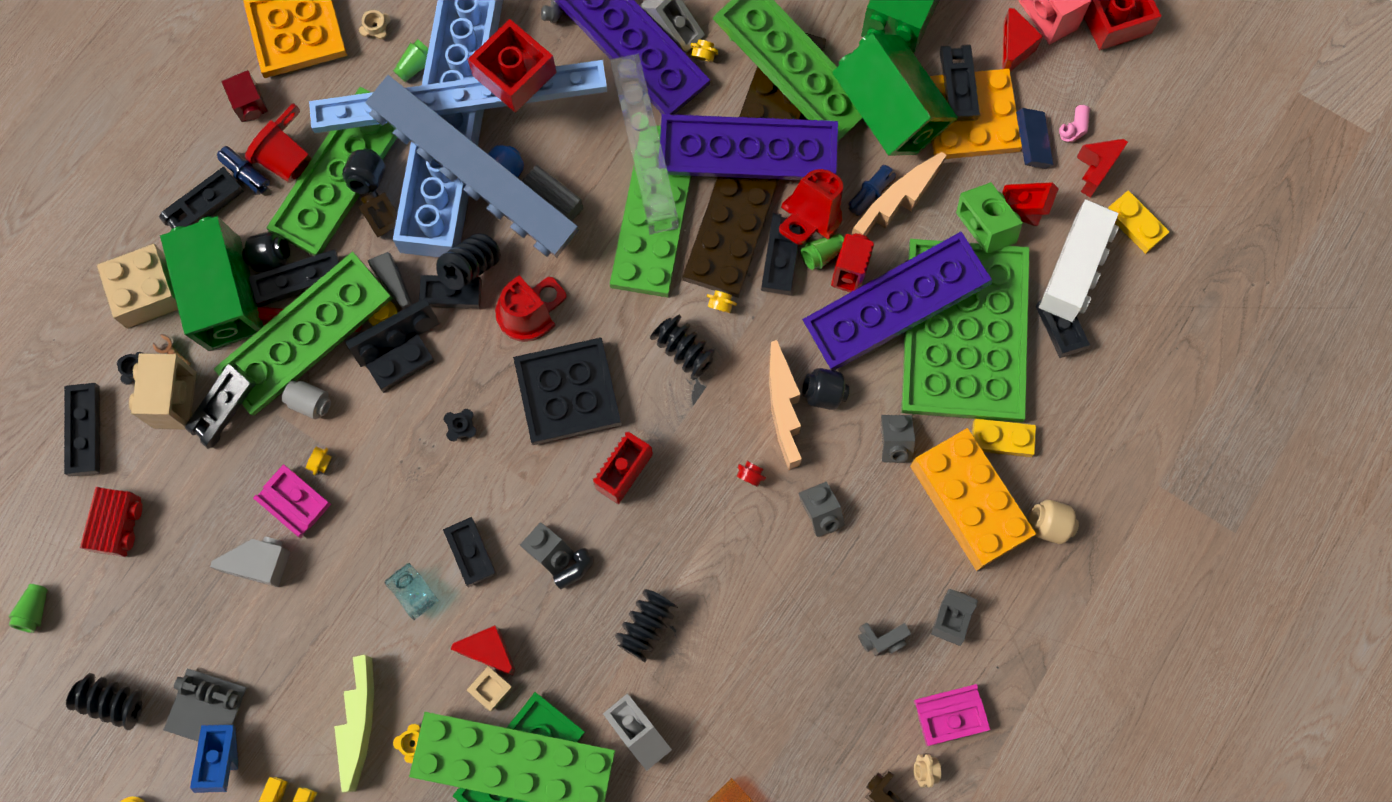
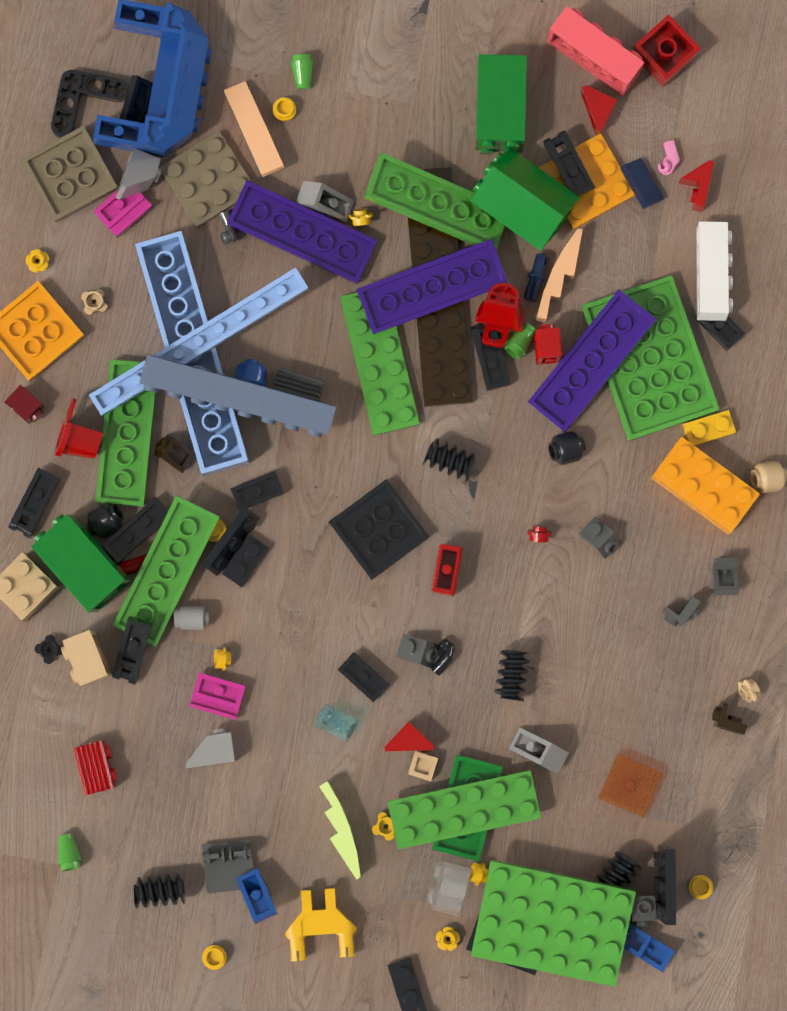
camera: 25 degrees left, 10 degrees up
(81, 429) = (36, 710): black plate -> none
(169, 349) = (70, 625): nougat hand -> none
(243, 170) = (52, 463): dark blue axle -> none
(363, 171) = (151, 428): black head -> none
(388, 272) = (205, 498): dark grey slope -> none
(412, 61) = (140, 319): bright green cone -> none
(466, 431) = (305, 588): black plate -> none
(467, 261) = (263, 465): black piece -> none
(512, 65) = (234, 306): red brick -> none
(523, 313) = (317, 483): red container -> none
(644, 144) = (353, 316): clear arch -> none
(721, 301) = (462, 413): yellow plate -> none
(782, 396) = (536, 464): light nougat slope -> none
(897, 438) = (633, 462): dark grey bracket -> none
(951, 715) = (750, 645): dark pink plate -> none
(989, 217) = (640, 276): bright green brick -> none
(1031, 200) = (656, 238): red slope -> none
(1138, 222) = (743, 218): yellow plate -> none

